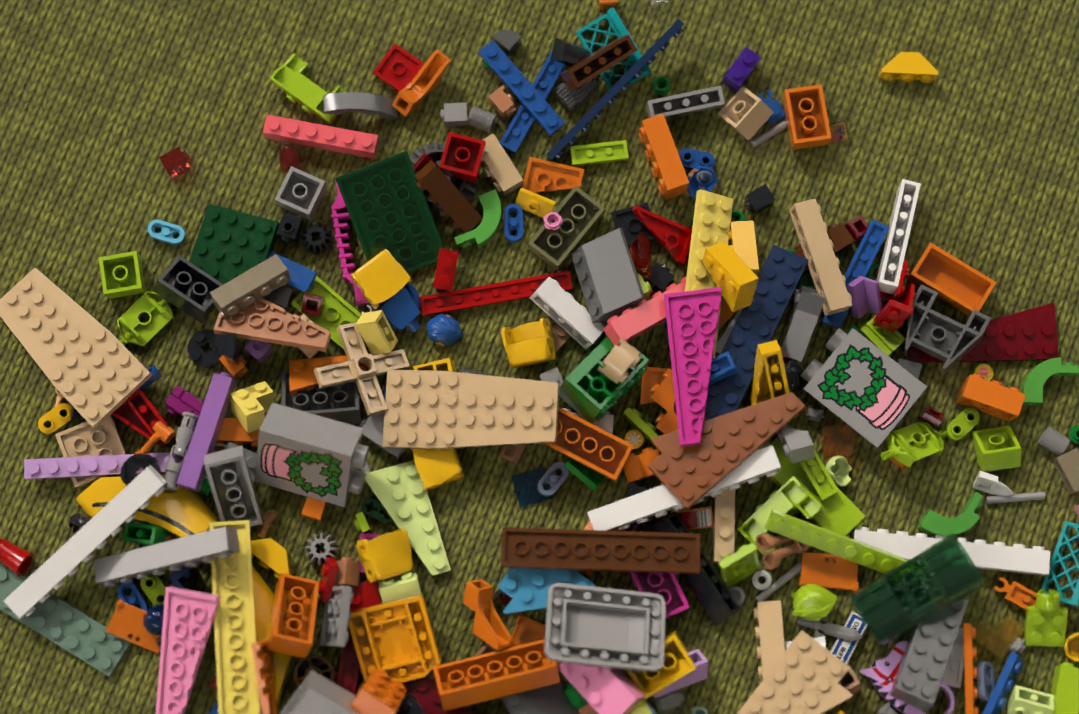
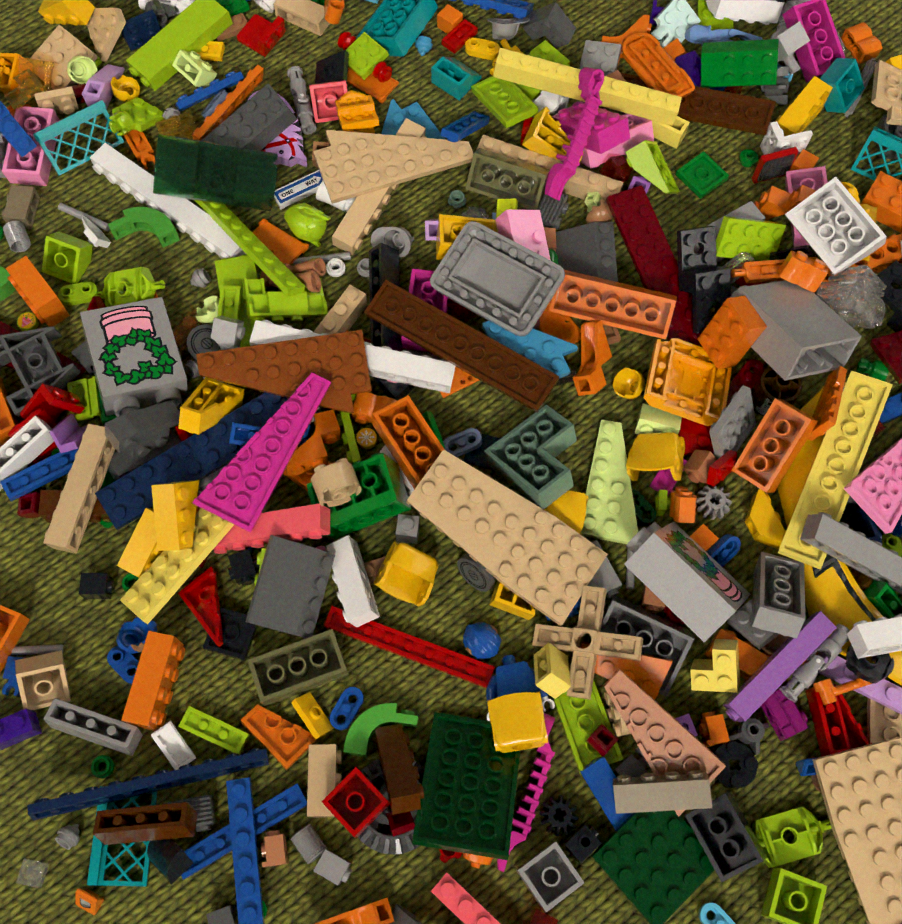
camera: 150 degrees left, 10 degrees down
(201, 372) = (745, 736): none -> dark grey brick
(229, 347) = (719, 736): black brick -> none
(267, 520) = (751, 558): medium nougat piece -> none
(293, 511) = (725, 549): none -> blue plate
(343, 524) = (682, 505): none -> orange brick
(444, 614) = (628, 383): none -> yellow hair
(446, 269) = (444, 696): red brick -> none
(494, 493) = (528, 456): none -> sand green brick
(552, 216) = (302, 672): bright pink plate -> none
(620, 126) = (173, 745): none -> white plate
(642, 255) = (242, 595): clear red brick -> none
(650, 30) = (68, 836): none -> light grey plate
(726, 633) = (394, 237): none -> light grey piece
(739, 565) = (346, 275): lime plate -> none
(824, 438) = (200, 341): none -> dark grey tile
(830, 629) = (303, 197): light grey sword -> none
(869, 498) = (200, 278): none -> light grey plate

